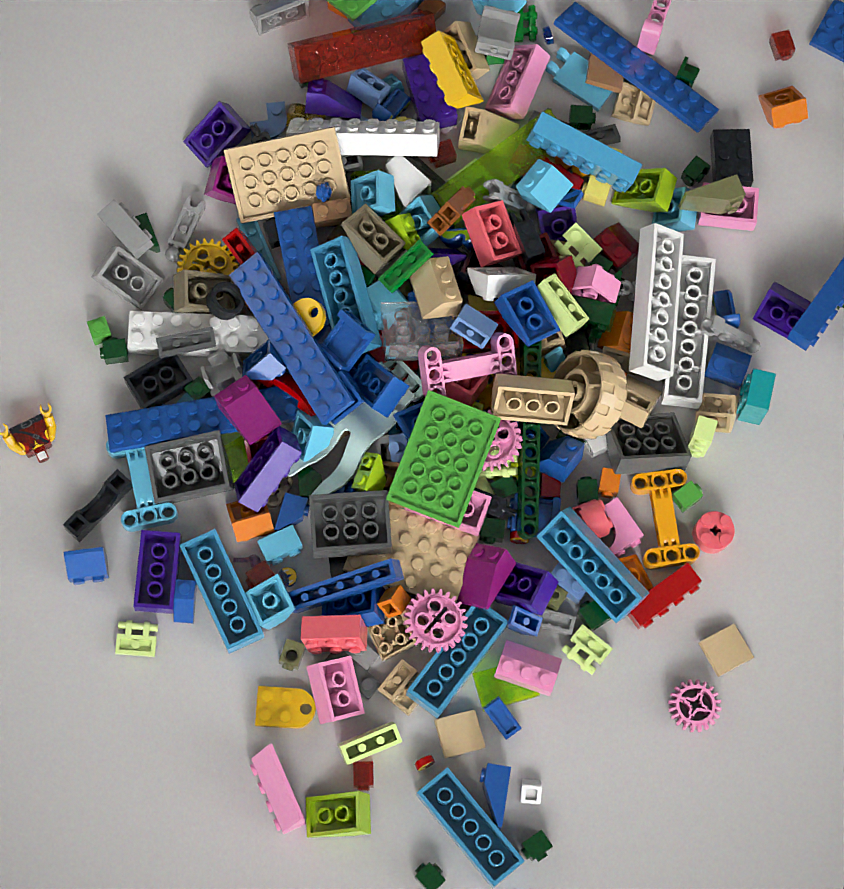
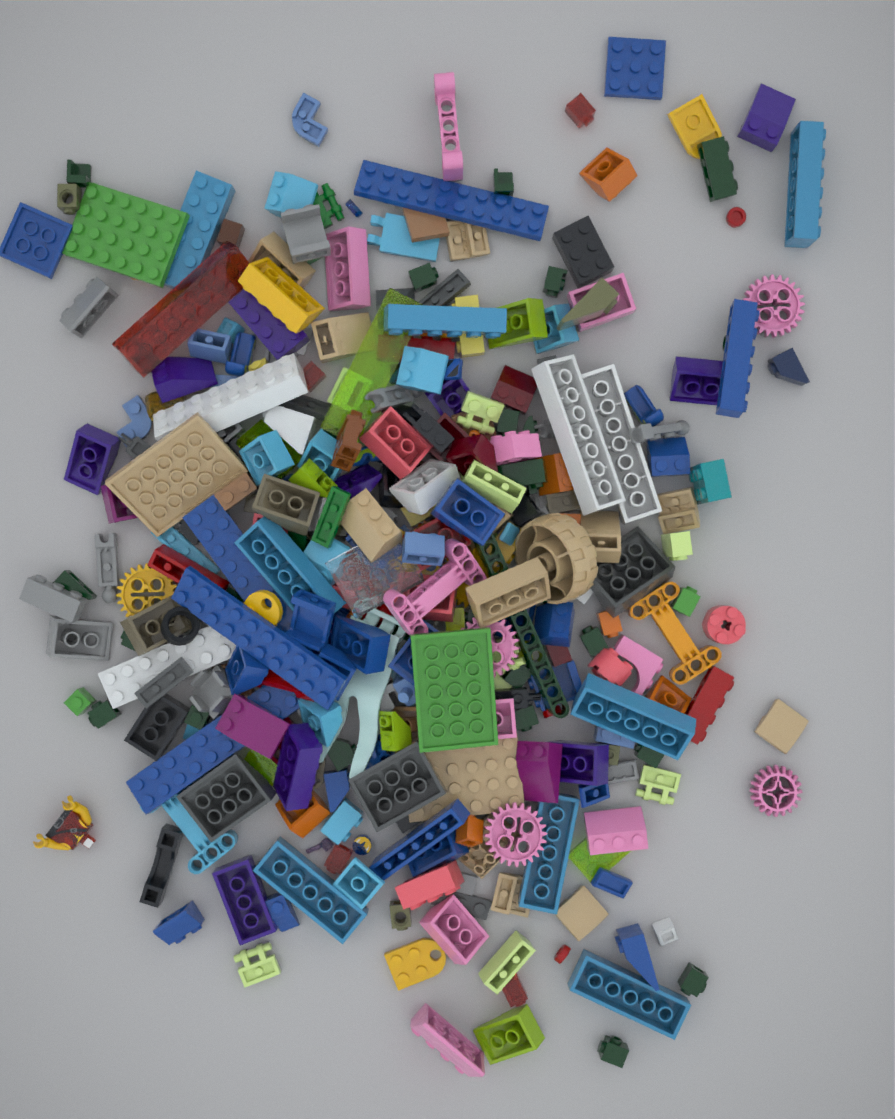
camera: 25 degrees left, 15 degrees up
(323, 192) = (219, 477): blue plate -> none

